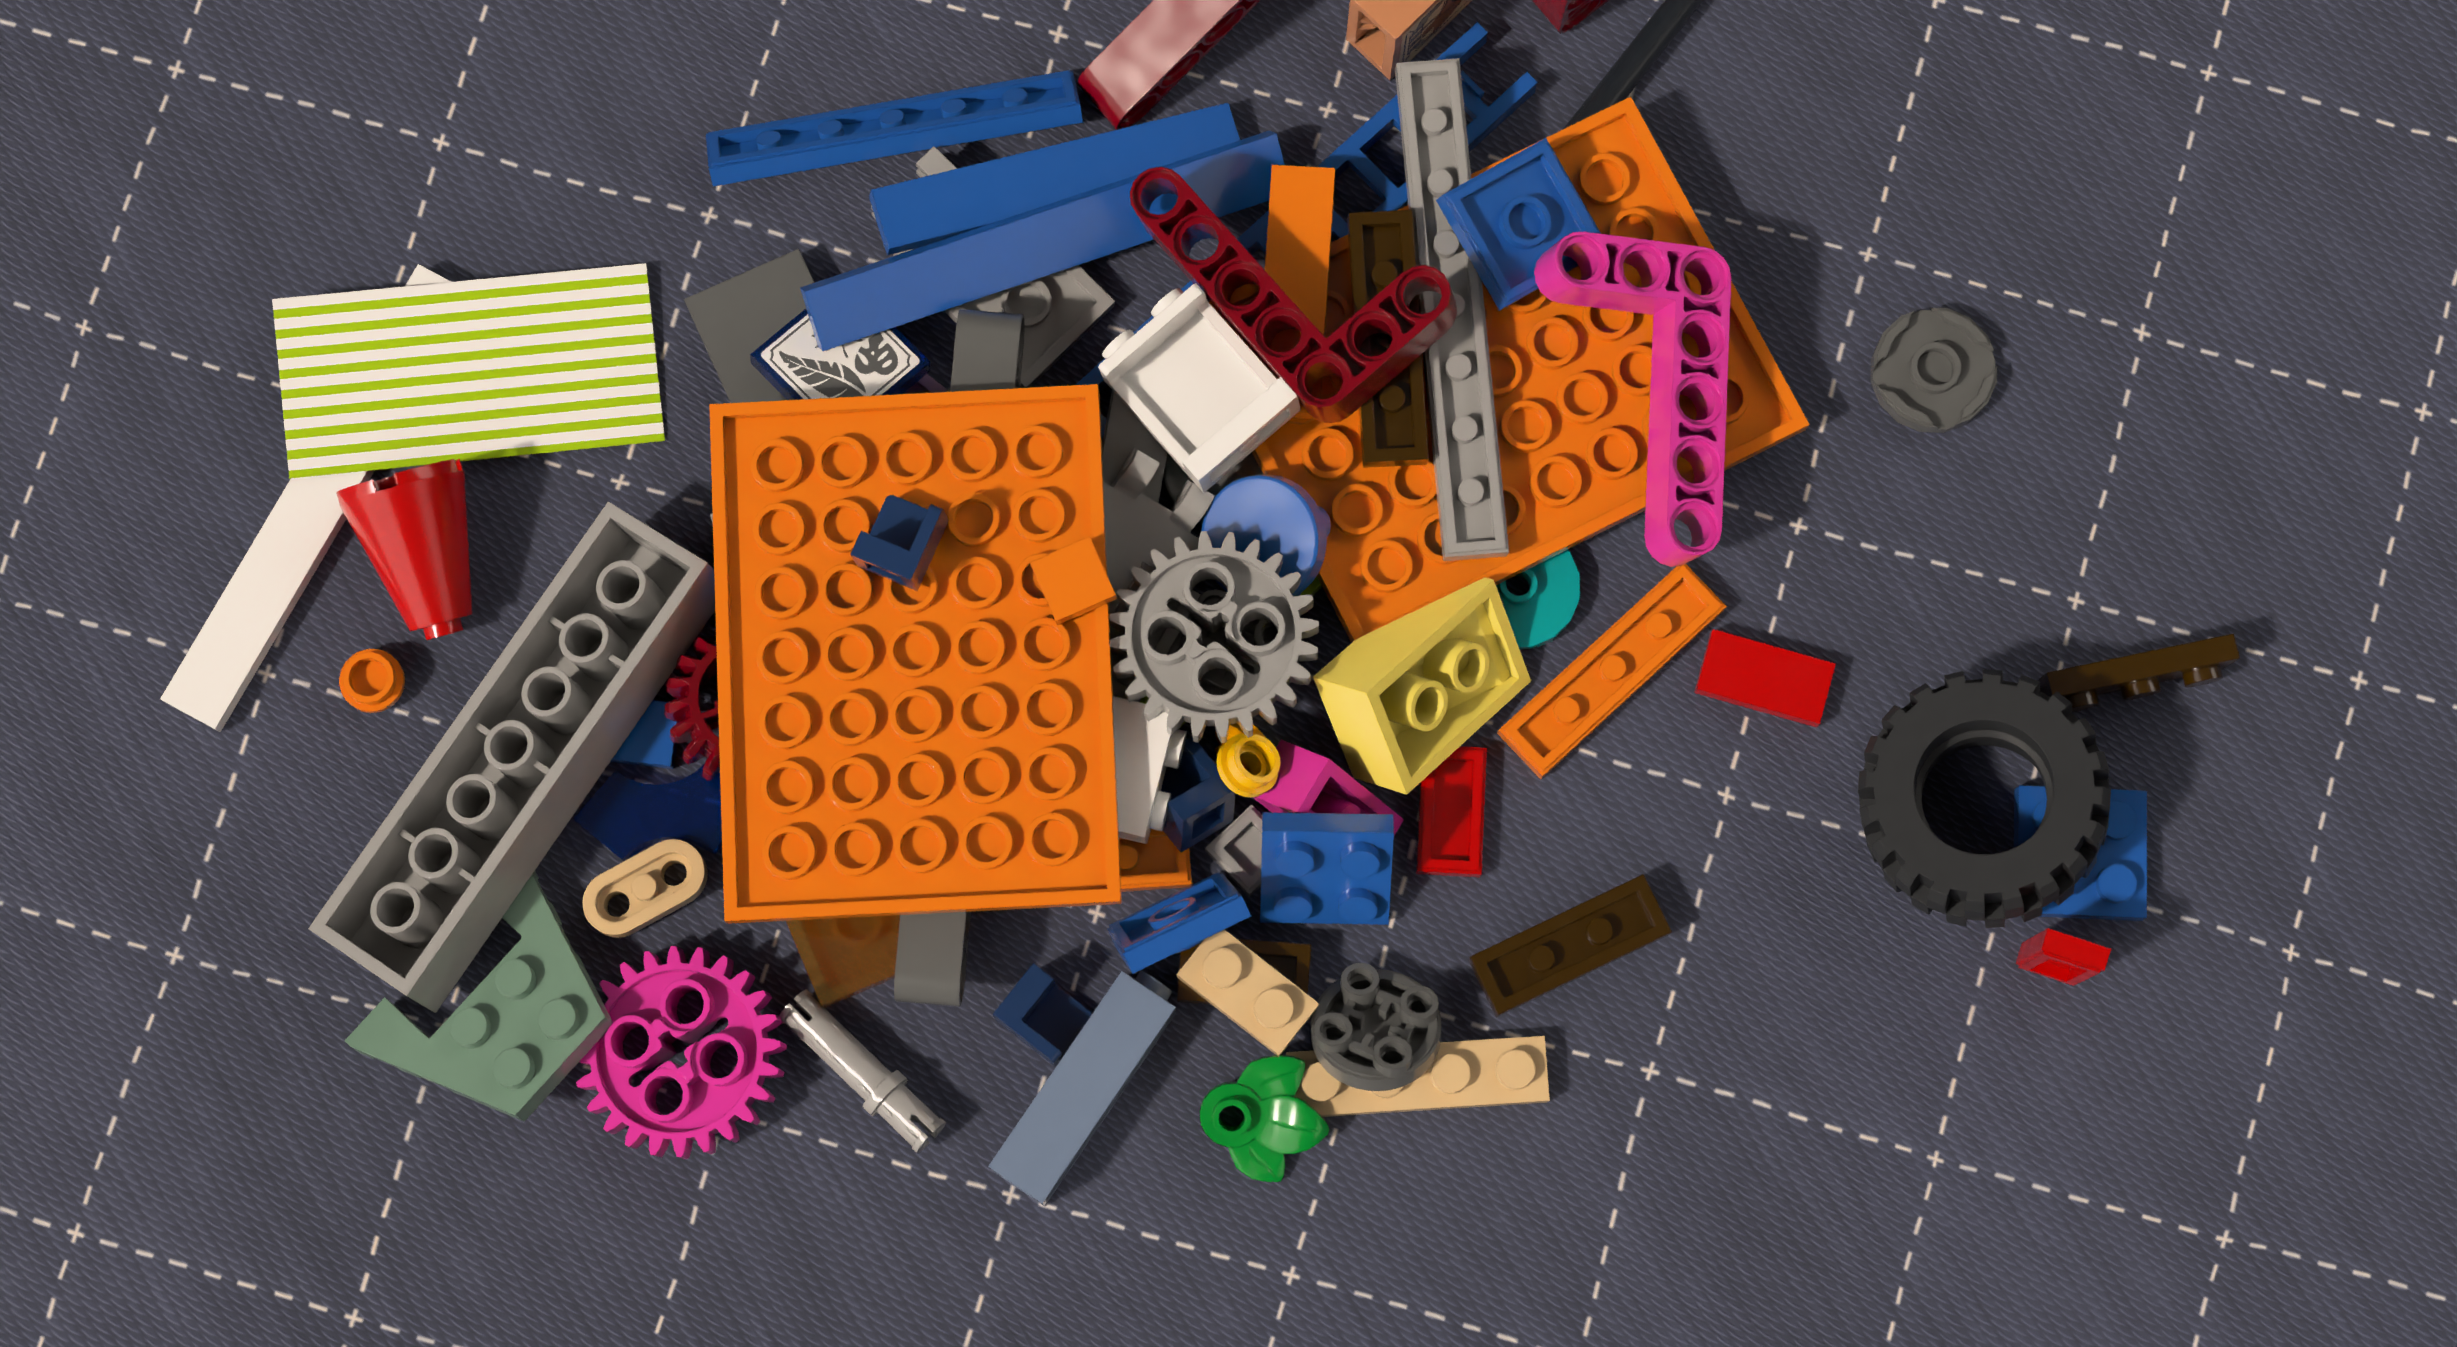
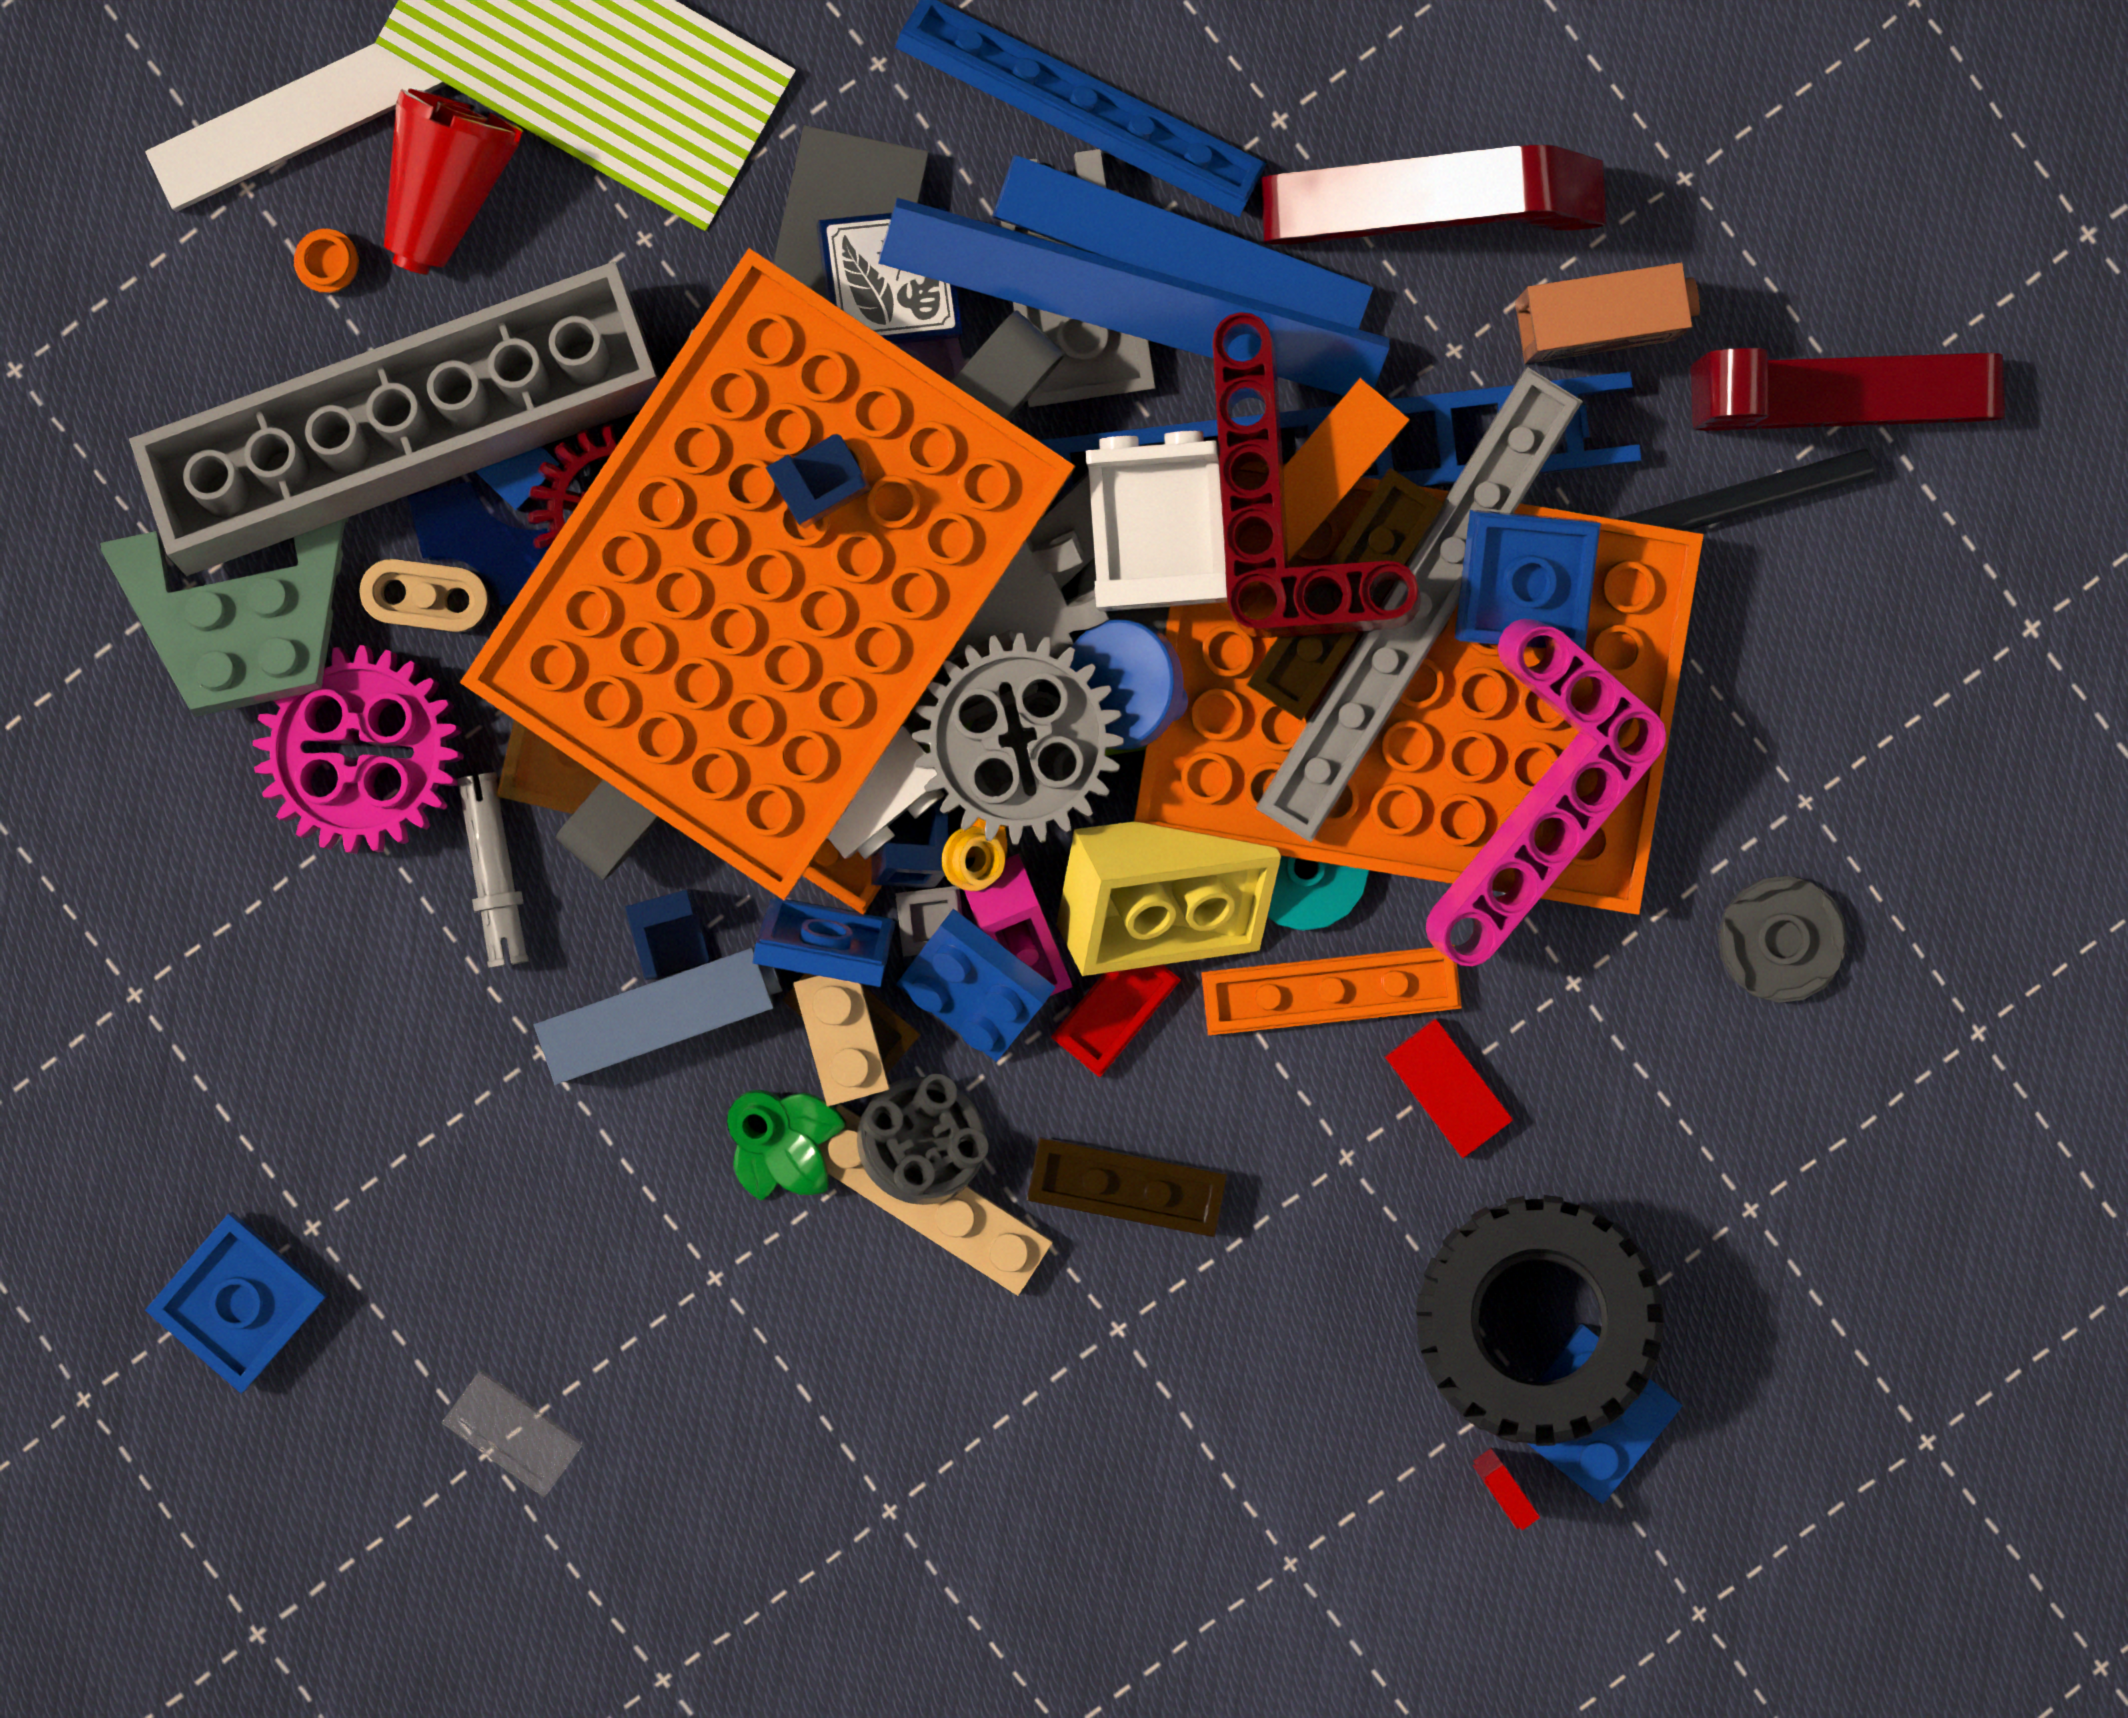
camera: 40 degrees right, 10 degrees up
(1073, 580) = (934, 615): orange tile -> none
(2141, 673) = (1748, 1309): dark brown plate -> none

